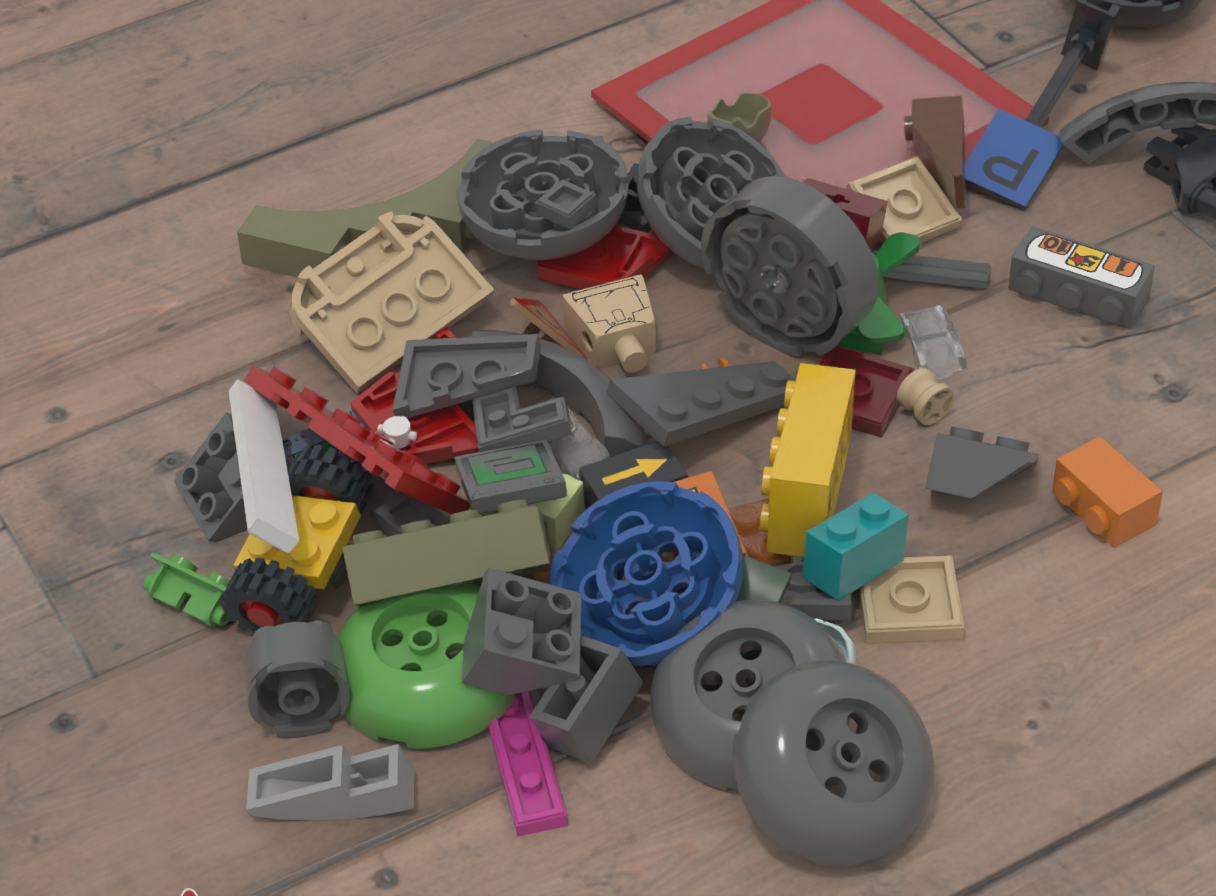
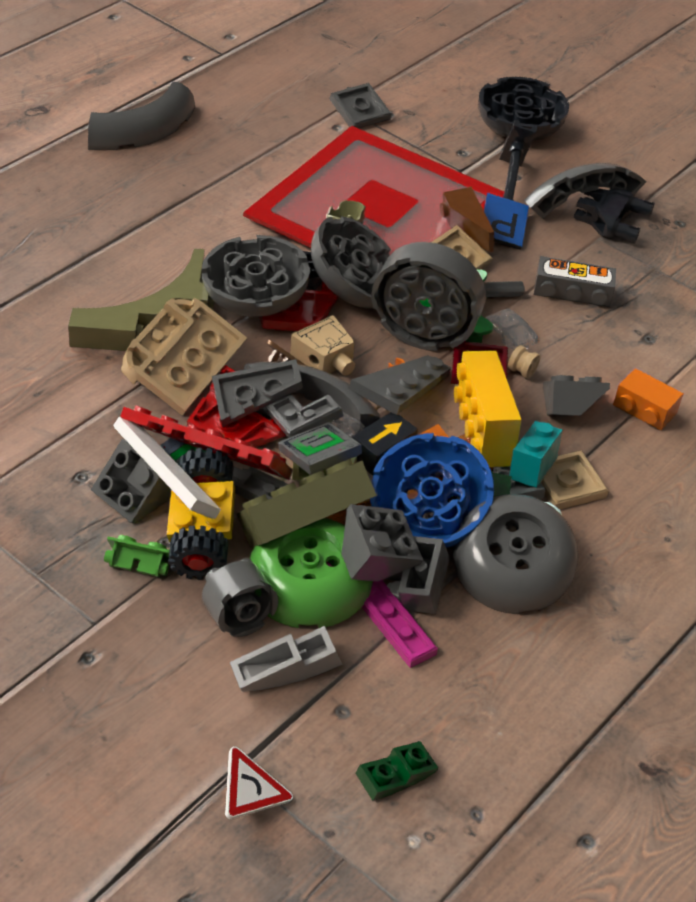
camera: 25 degrees left, 0 degrees up
(398, 431) = (230, 431): white piece -> none
(566, 204) = (279, 278): dark grey tile -> none
(786, 781) = (588, 582): dark grey brick -> none

